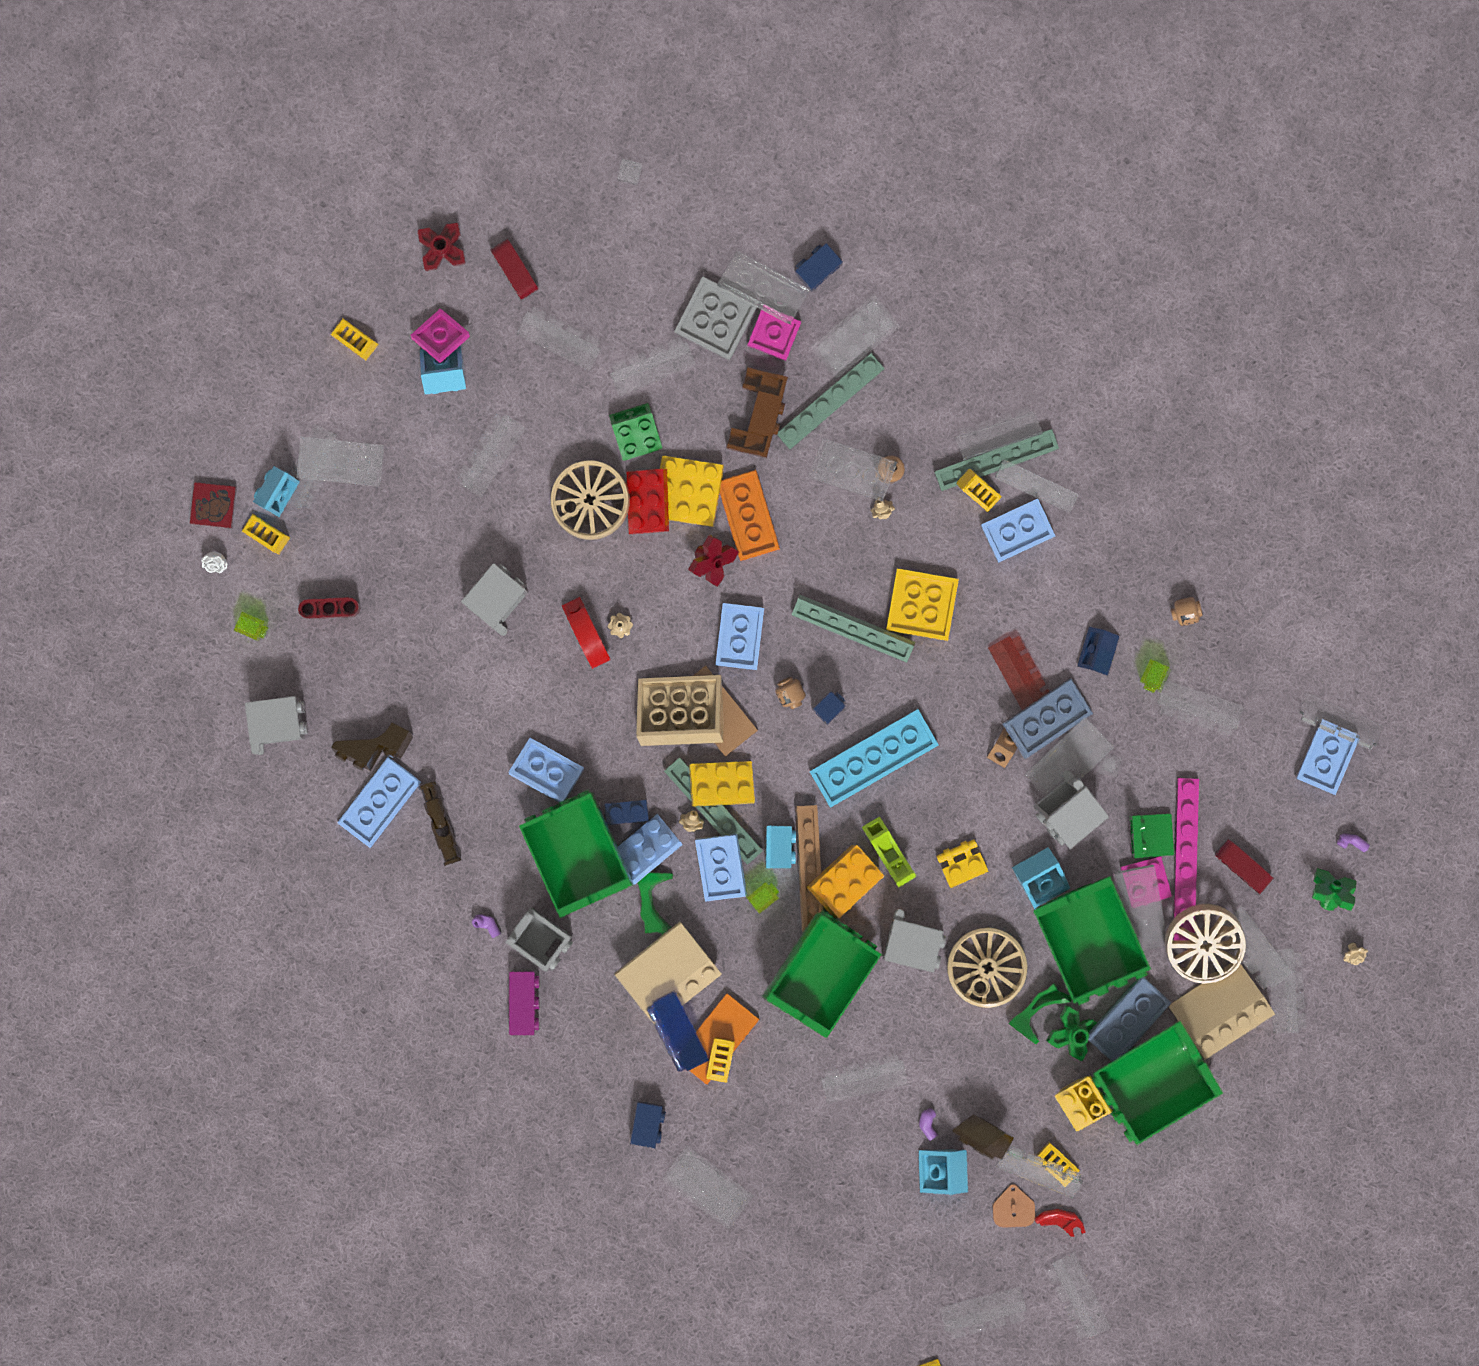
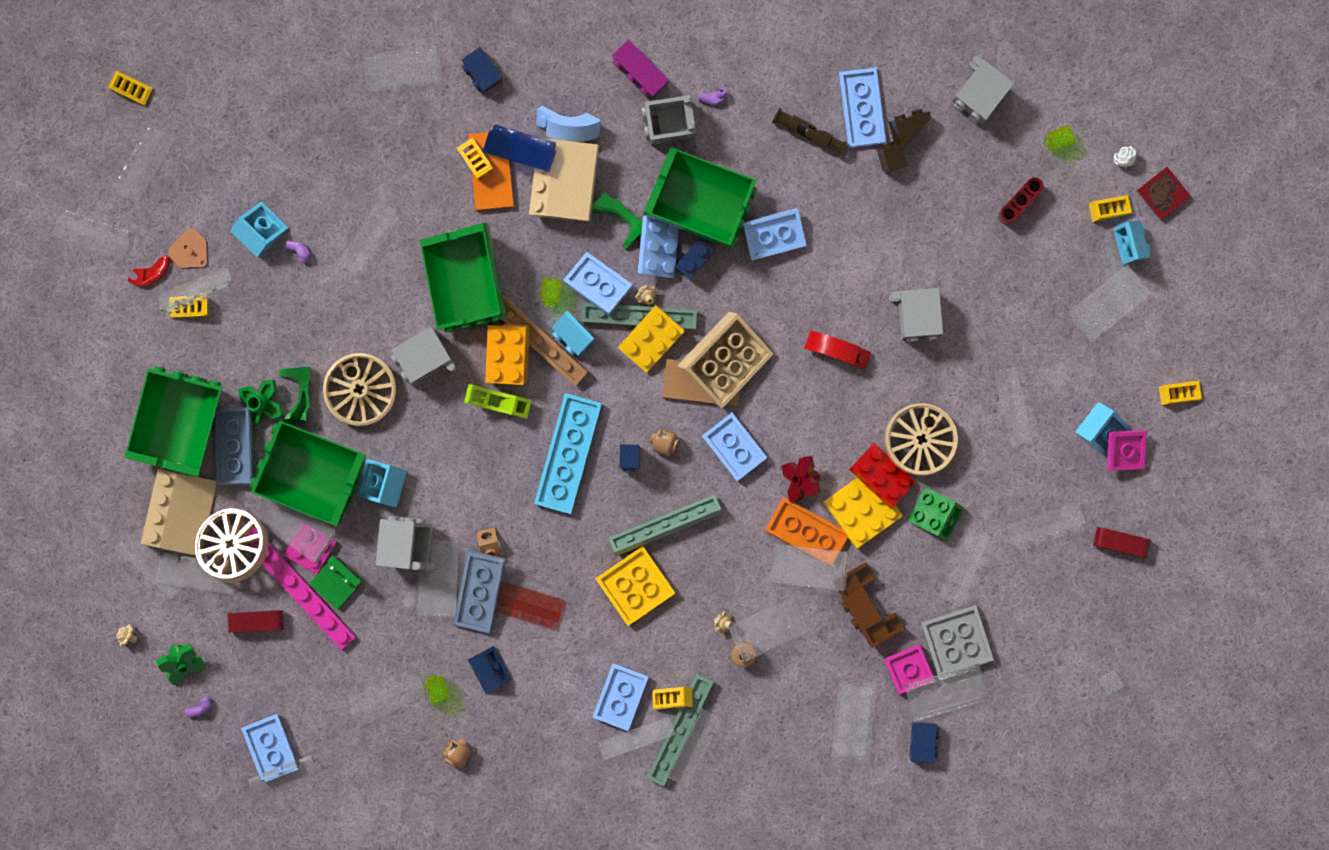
camera: 135 degrees right, 0 degrees up
(447, 237) = (1186, 521): dark red plant -> none
(620, 625) = (819, 376): tan plant -> none
(625, 1011) = (568, 128): none -> light blue arch
(773, 486) = (809, 567): none -> clear tile
(830, 401) = (827, 661): sand green plate -> none
(965, 869) = (437, 439): yellow plate -> none
(983, 1137) = (254, 276): dark brown slope -> none
(1082, 1102) = (211, 361): yellow slope -> none

